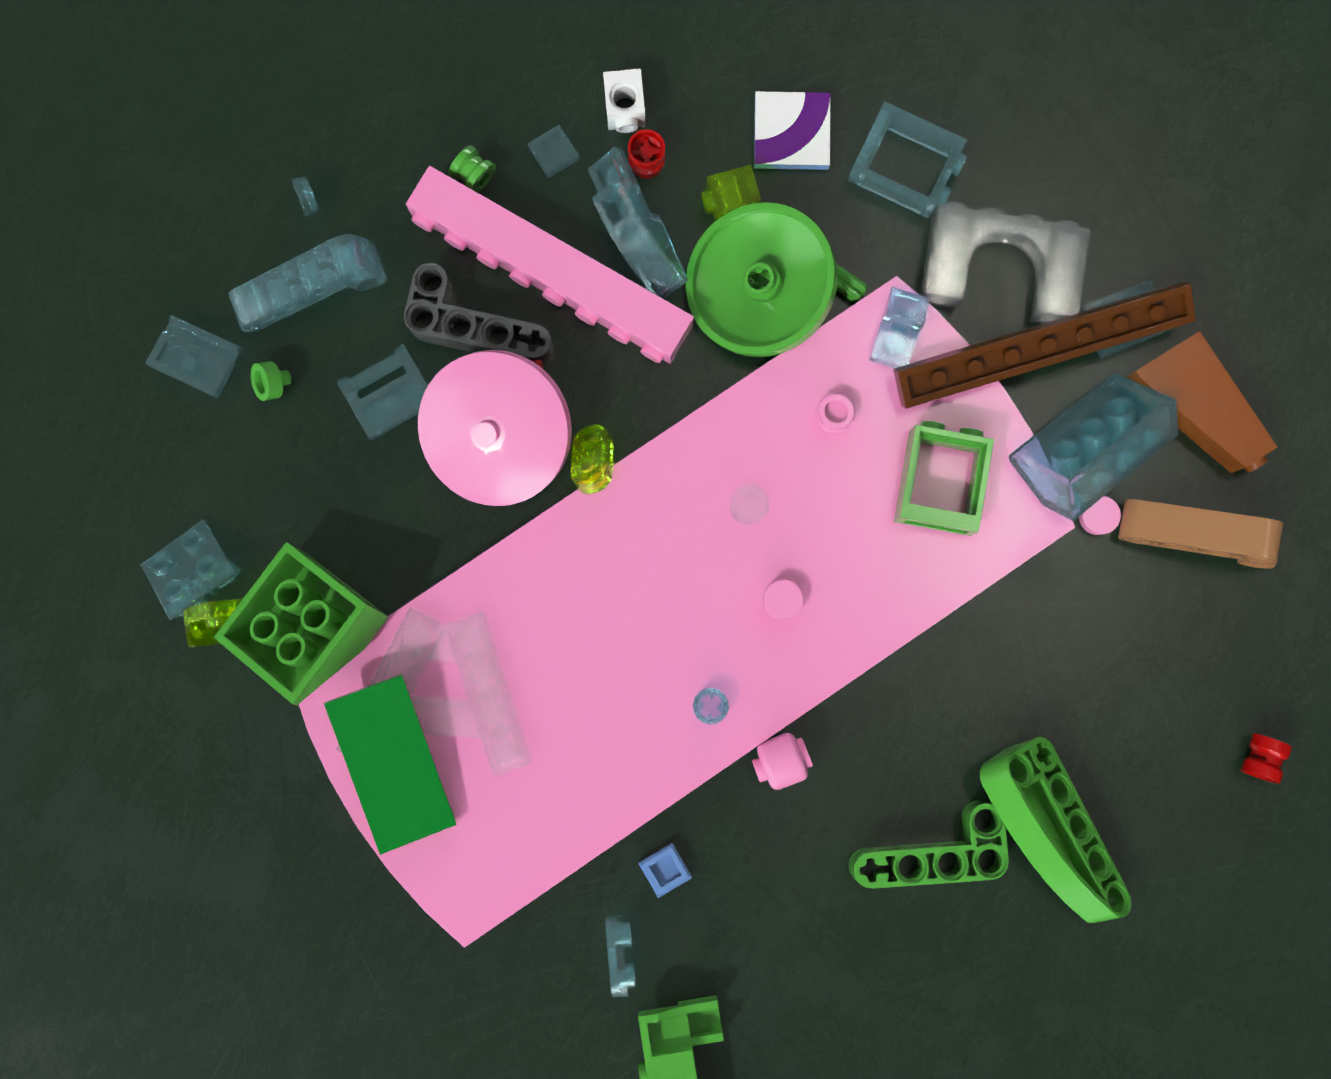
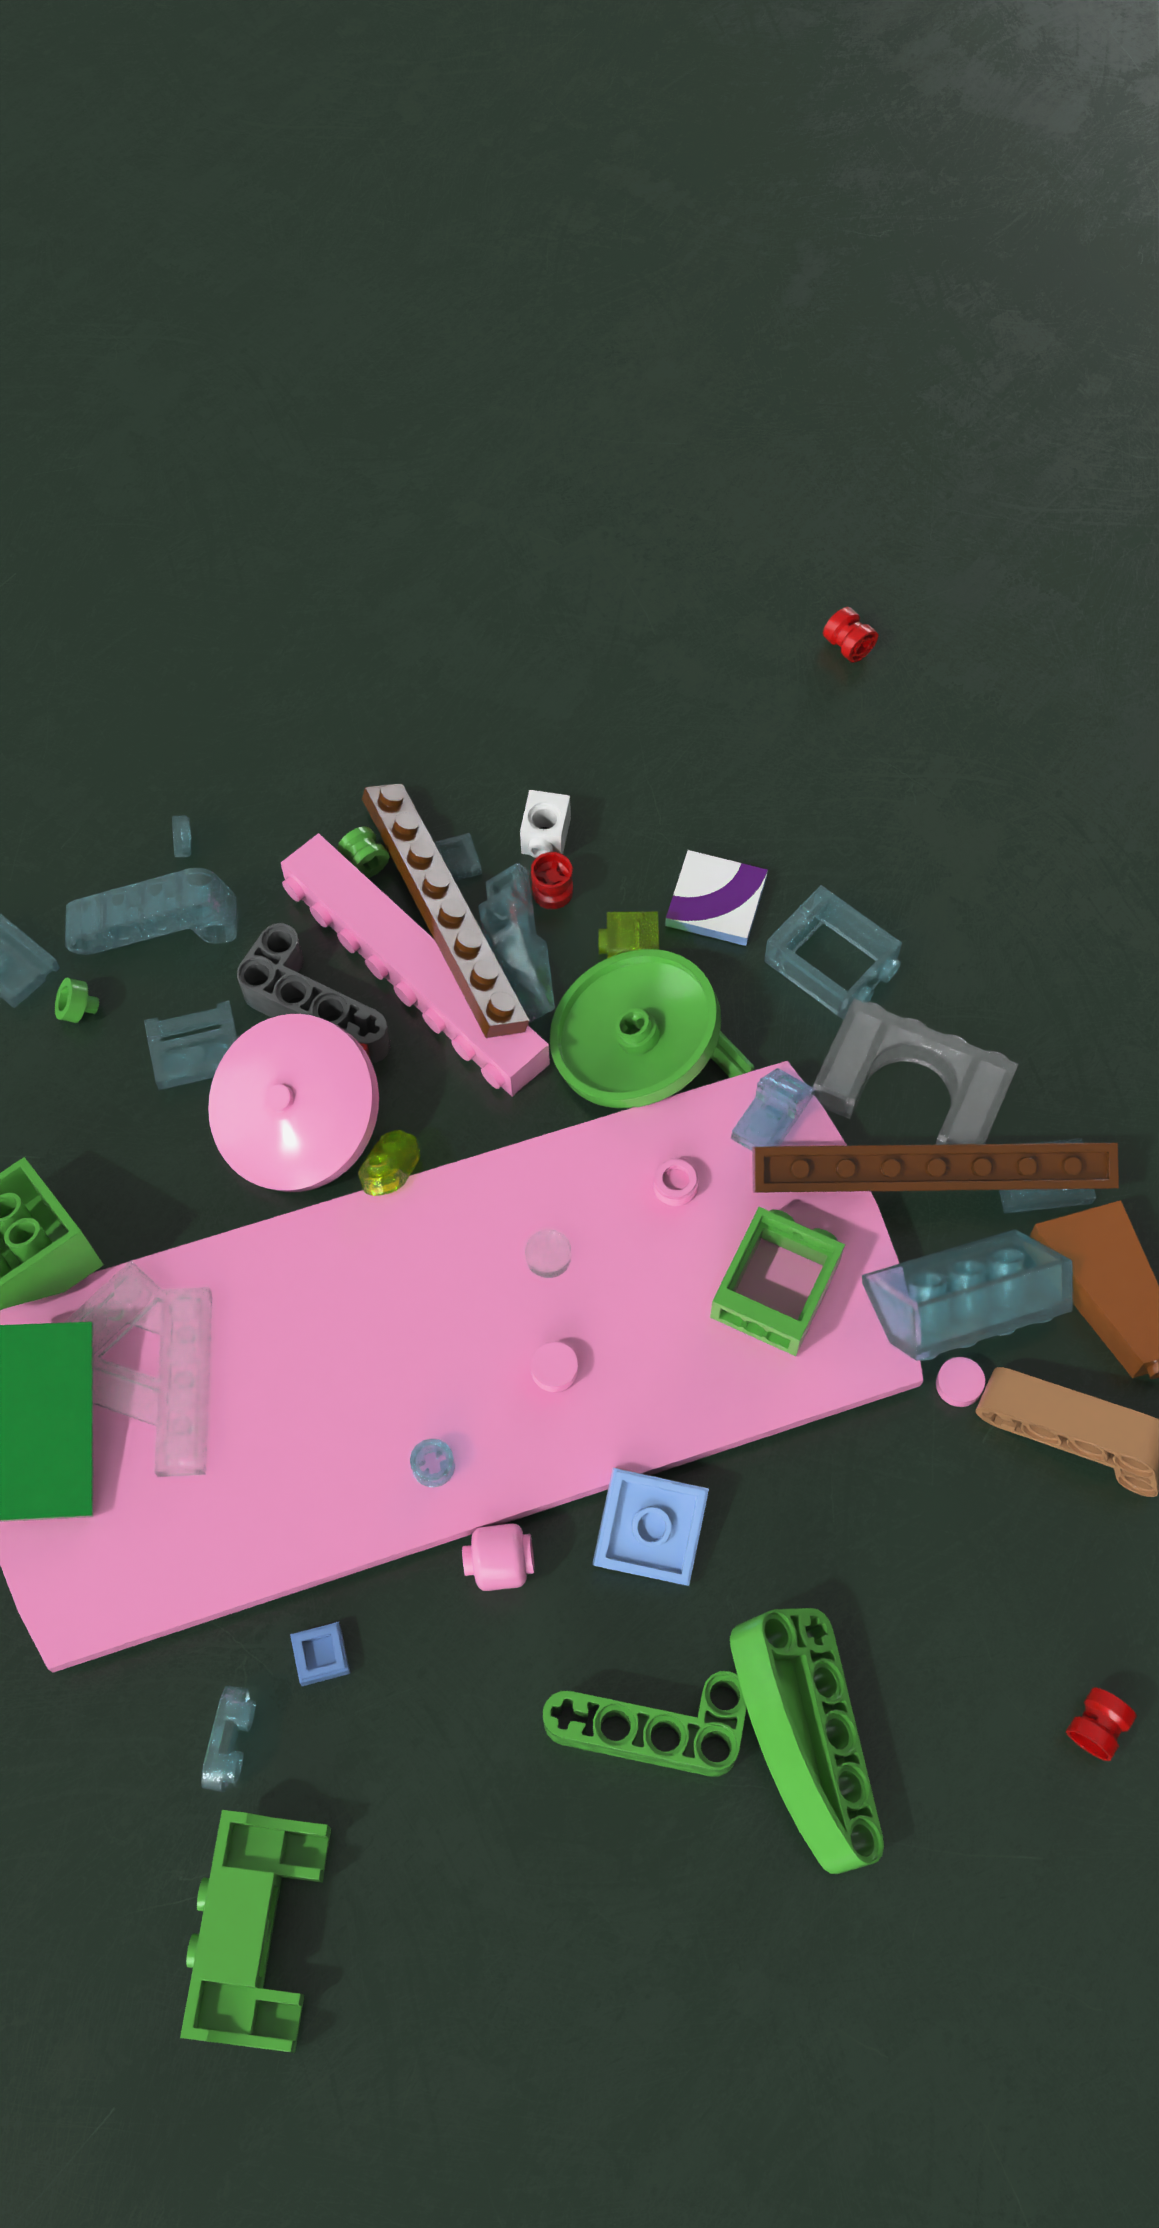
camera: 20 degrees right, 20 degrees down
(563, 209) = (445, 911): none -> plate
(892, 703) = (650, 1526): none -> light blue tile

